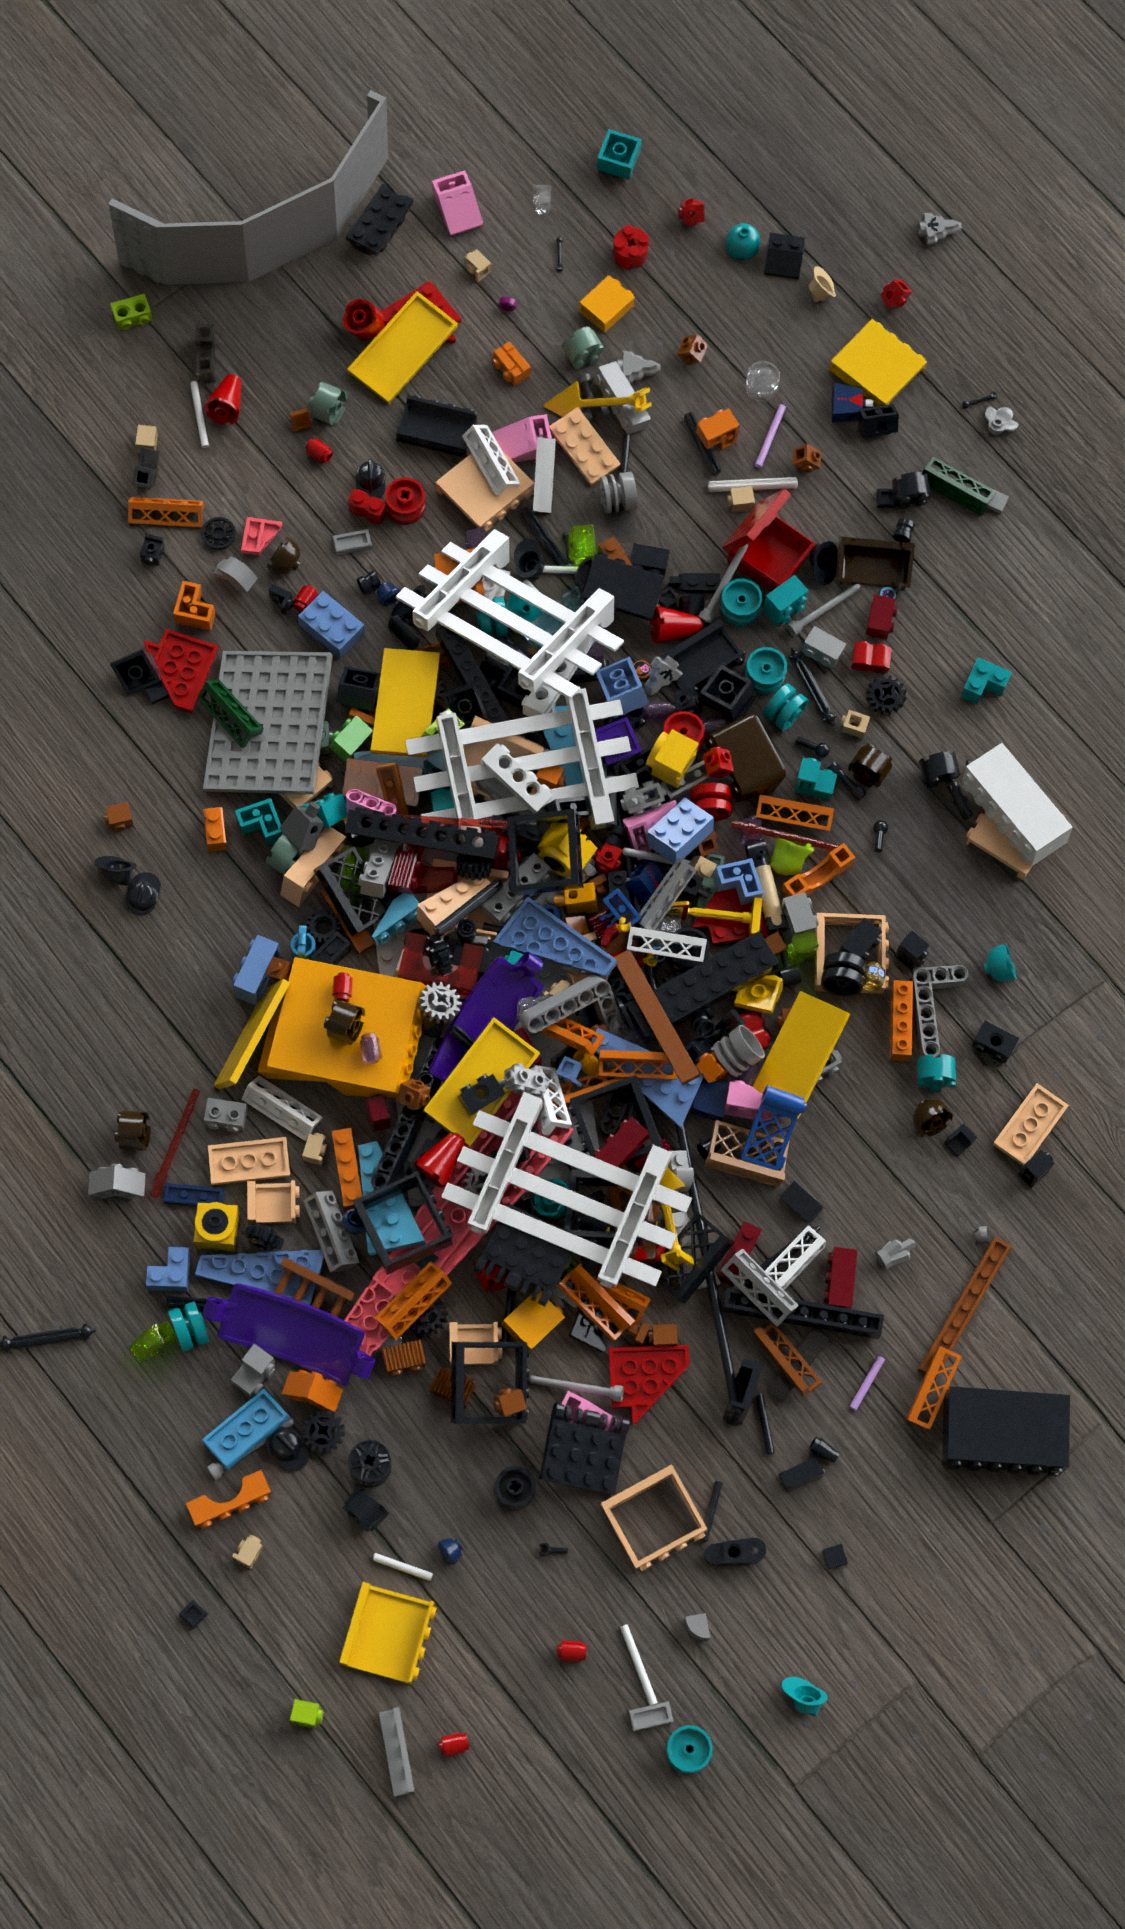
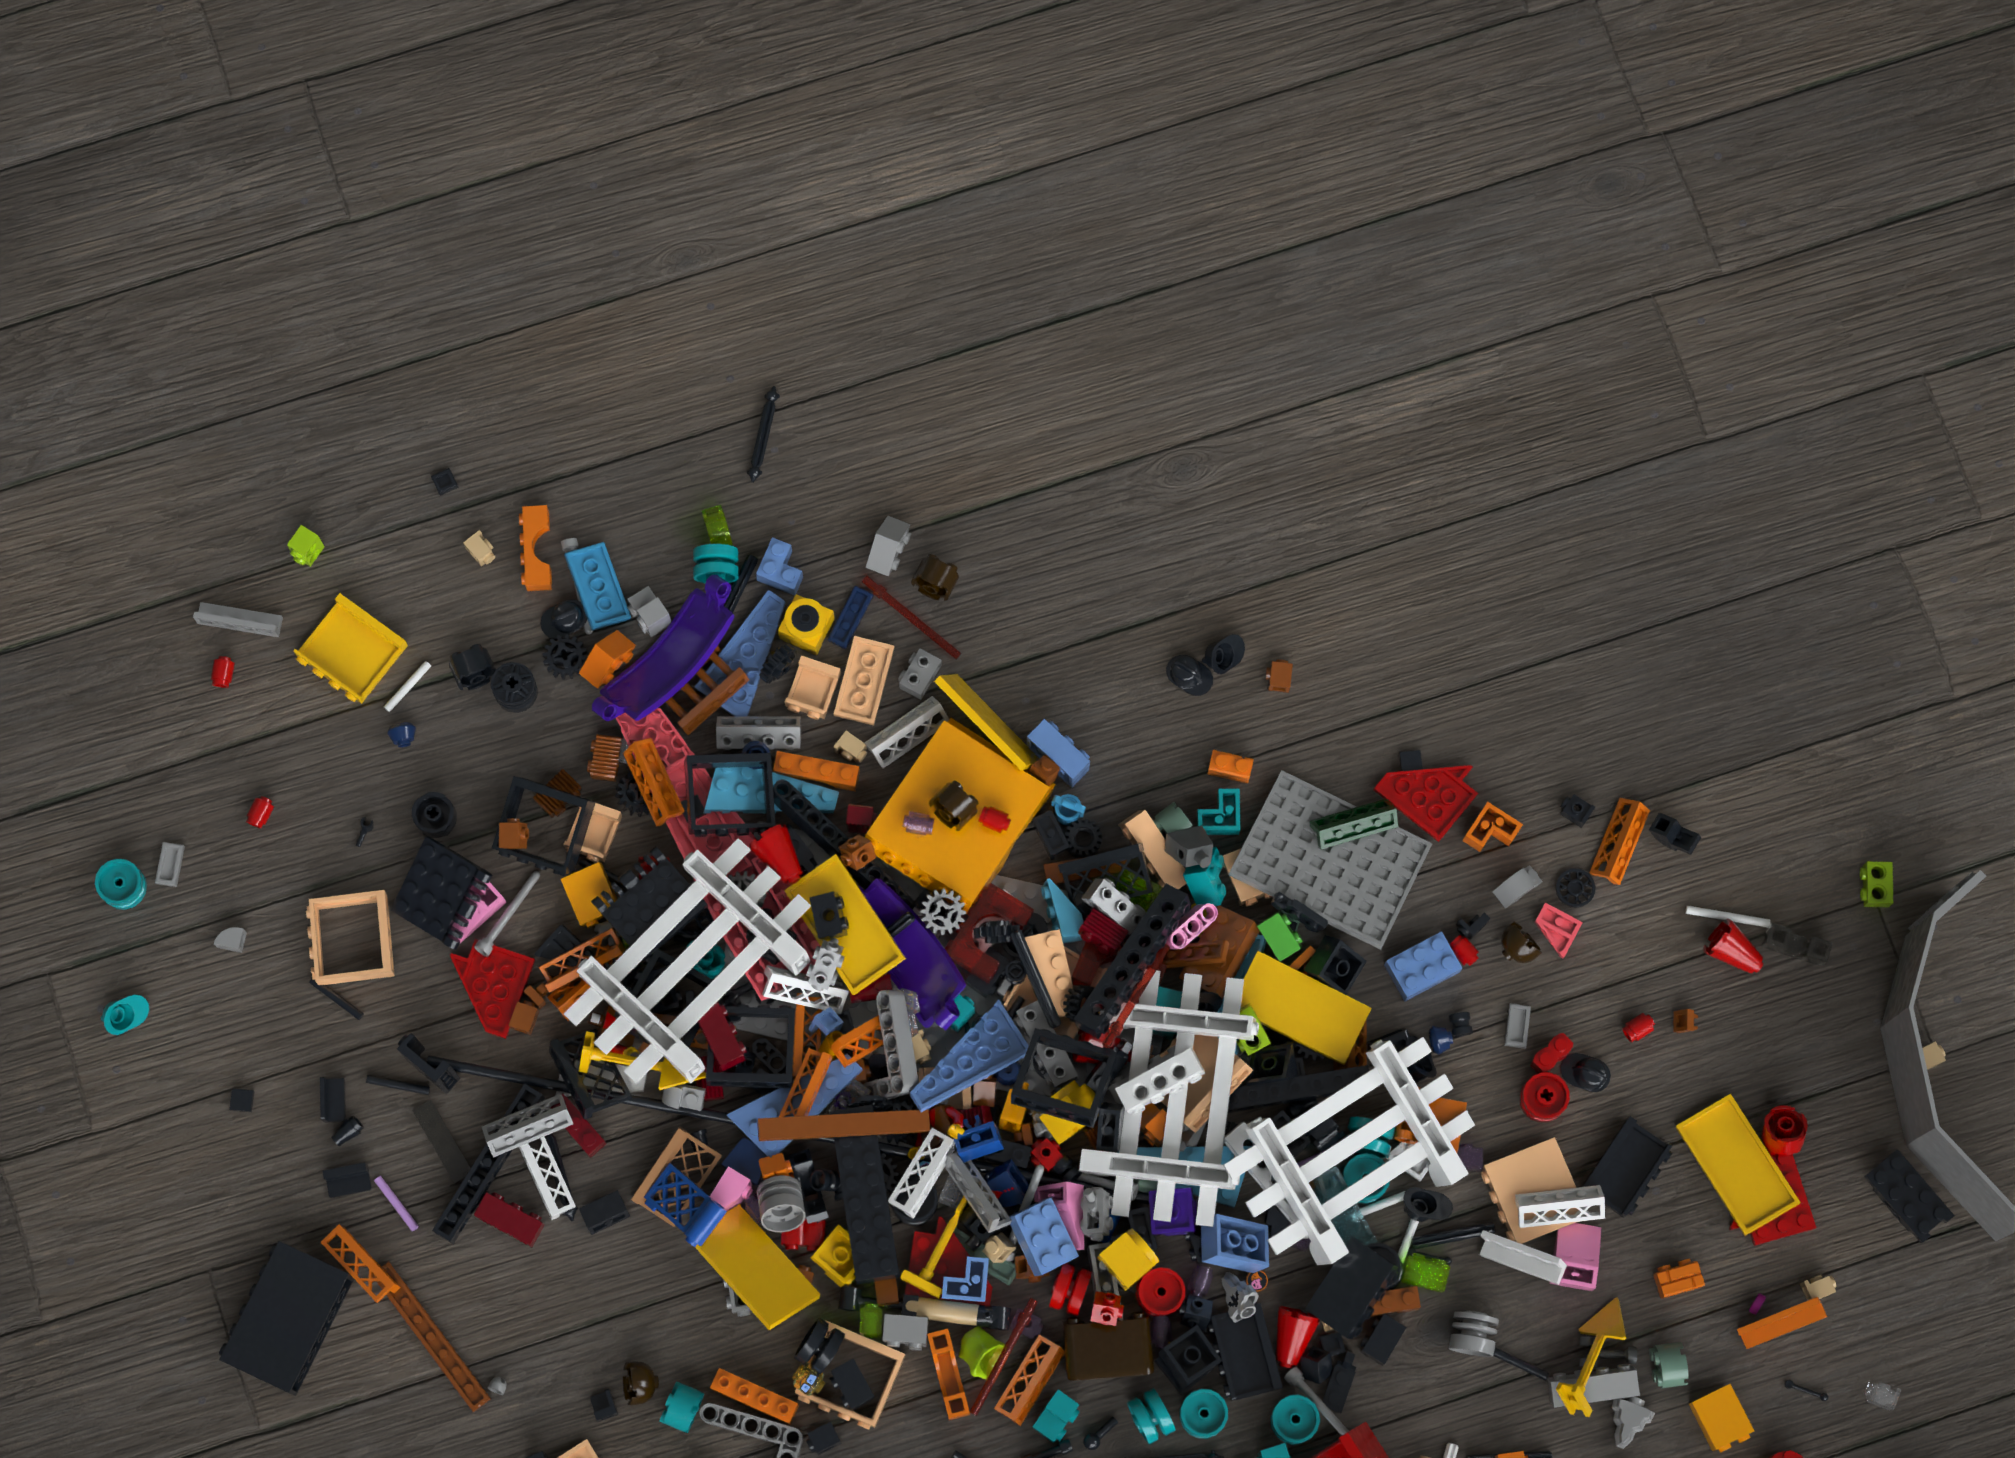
camera: 115 degrees right, 5 degrees up
(136, 671) = (1436, 746): black slope -> none
(146, 437) = (1712, 848): tan brick -> none
(326, 726) = (1299, 912): none -> black hinge
(328, 403) = (1691, 1055): sand green brick -> none
(457, 203) = (1905, 1294): bright pink slope -> none
(515, 280) = (1782, 1322): none -> orange fence
(584, 446) = (1547, 1321): light nougat plate -> none
(638, 1665) = (221, 871): white bar -> none
(718, 1554) = (289, 986): black piece -> none
(781, 1361) = (447, 1122): dark orange fence -> none
(865, 1433) = (347, 1180): none -> black panel
(894, 1253) = (512, 1284): light grey rock -> none

